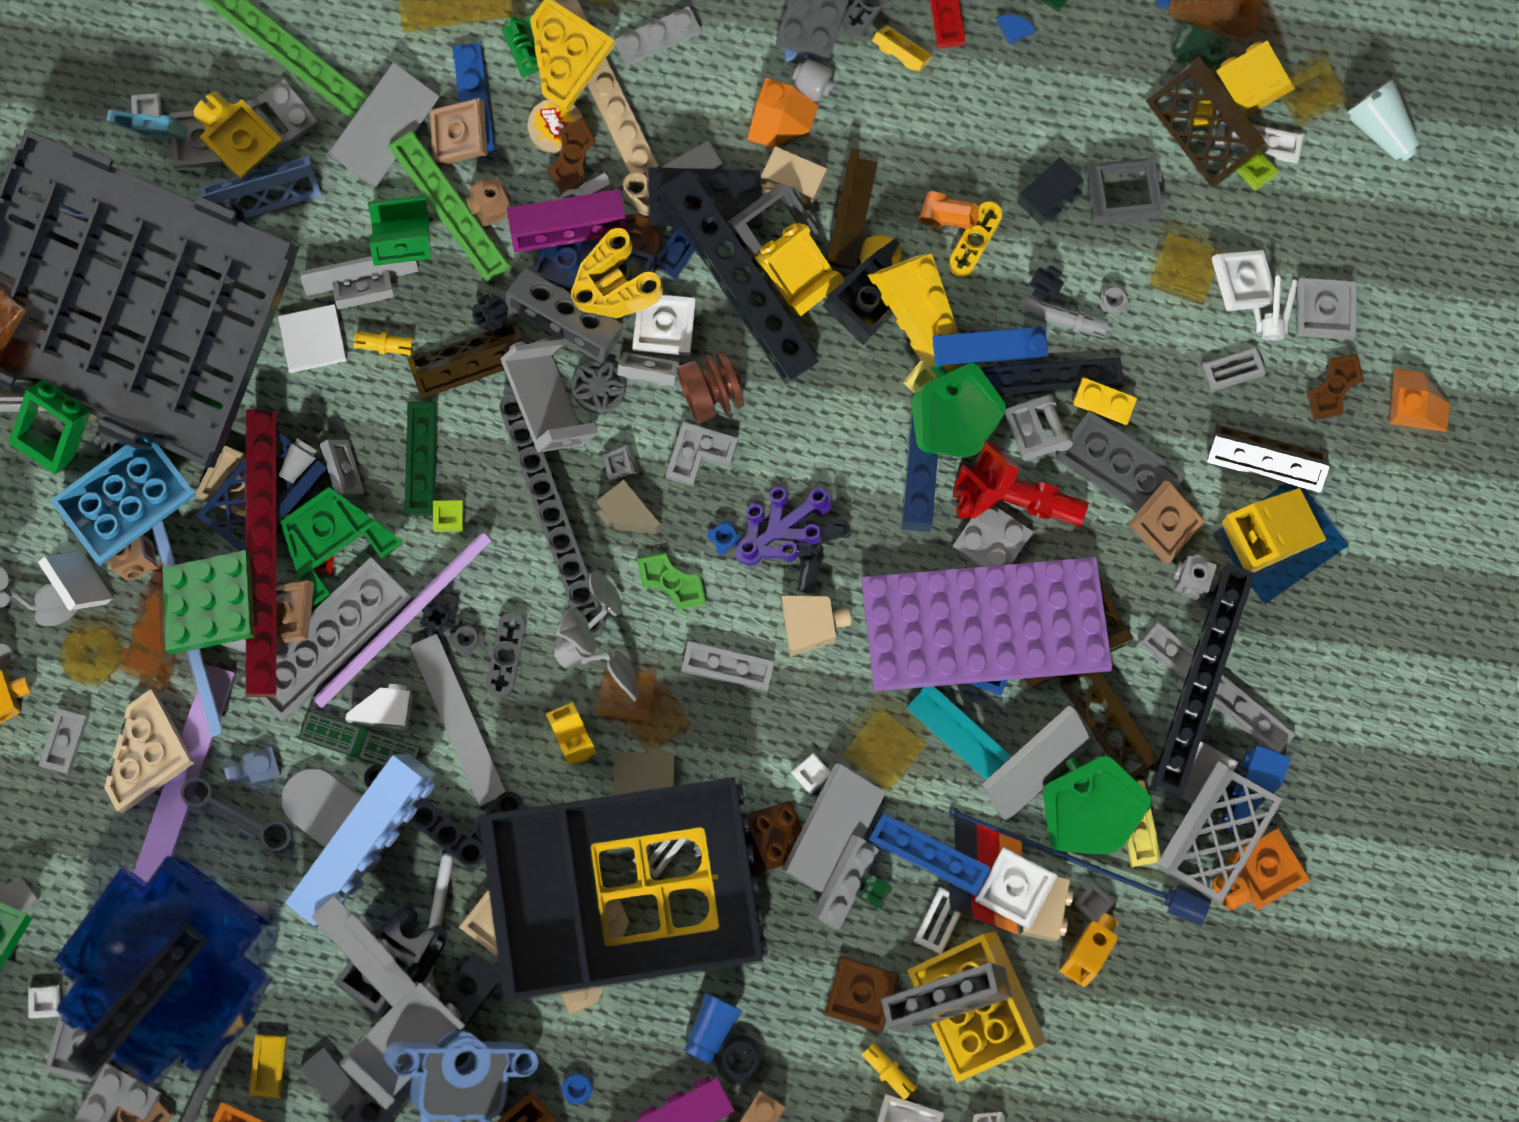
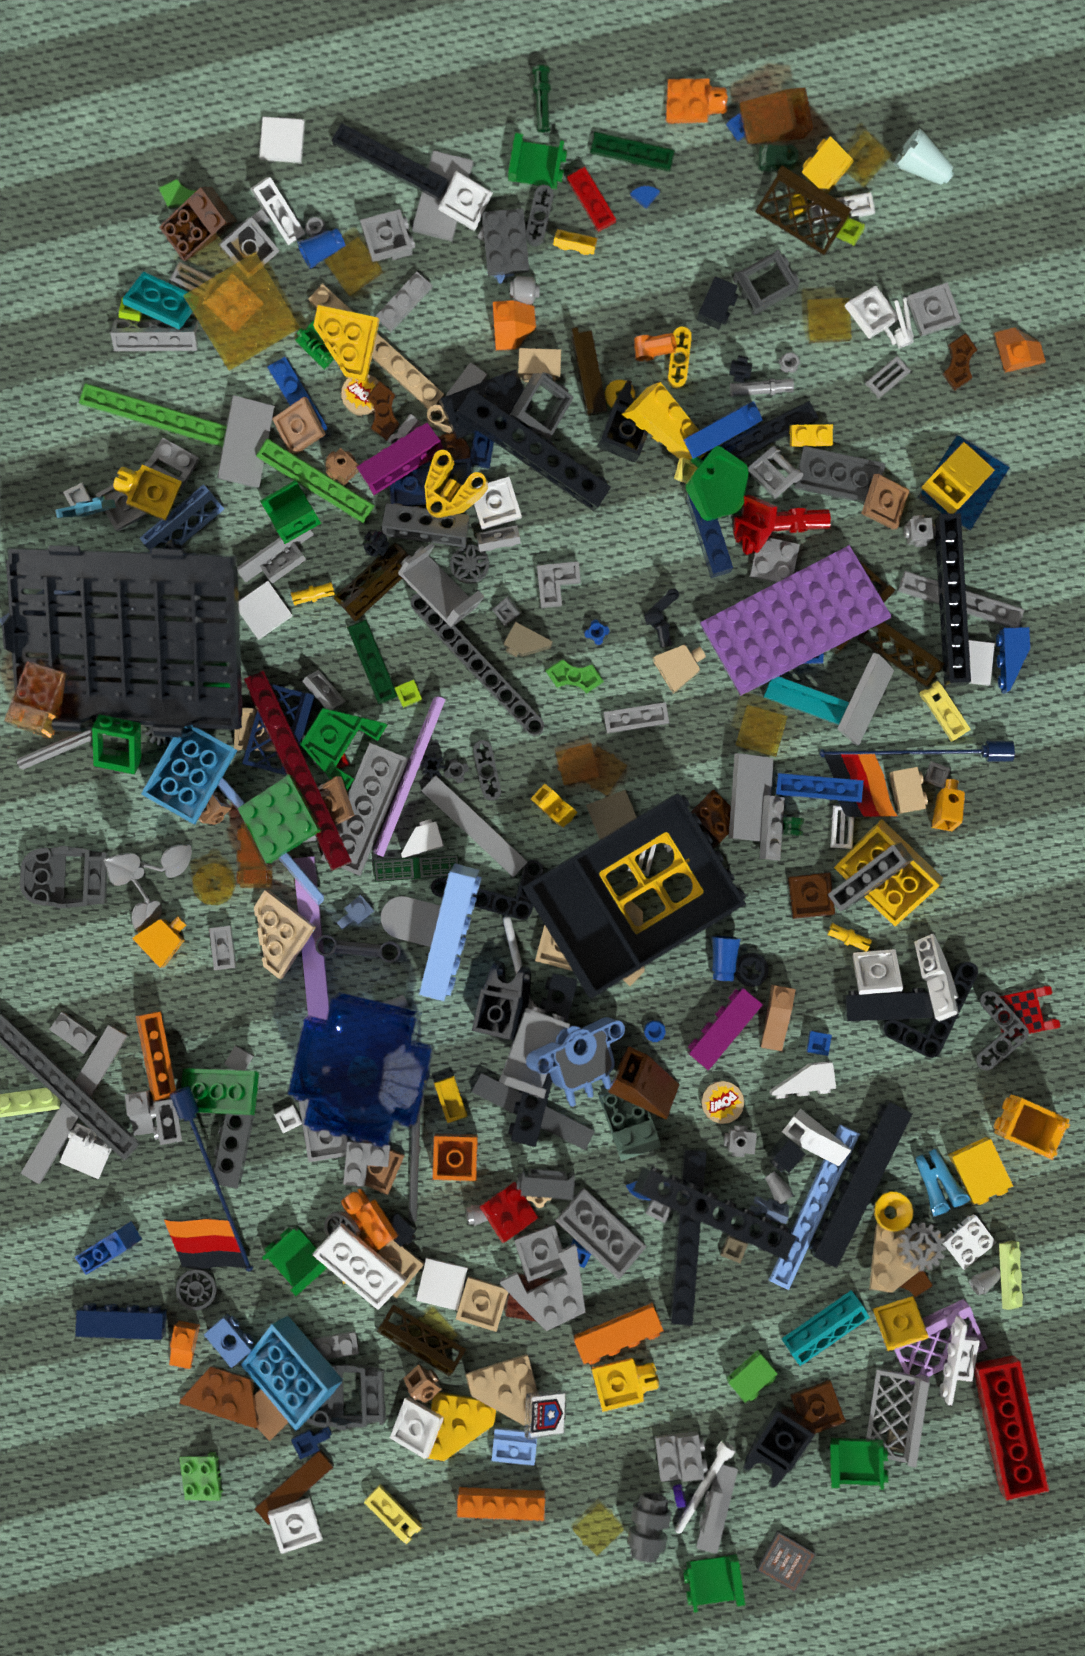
camera: 20 degrees left, 10 degrees up
(75, 580) = (182, 839): white tile -> none
(137, 1000) = (353, 1096): black plate -> none
(297, 460) = (293, 696): light grey cone -> none
(364, 951) = (489, 1006): light grey bracket -> none
(582, 643) = (535, 743): light grey plant -> none
(710, 386) = (550, 530): copper wheel -> none
(781, 528) = (632, 611): dark purple plant -> none
(798, 269) = (571, 428): yellow panel -> none
(811, 773) = (720, 765): white tile -> none
(1016, 888) = (885, 786): white tile -> none
(1093, 807) = (913, 712): green animal -> none
(1197, 817) = (985, 688): light grey fence -> none
(1266, 875) = (1037, 710): orange plate -> none
(1268, 458) = (935, 429): fence -> none

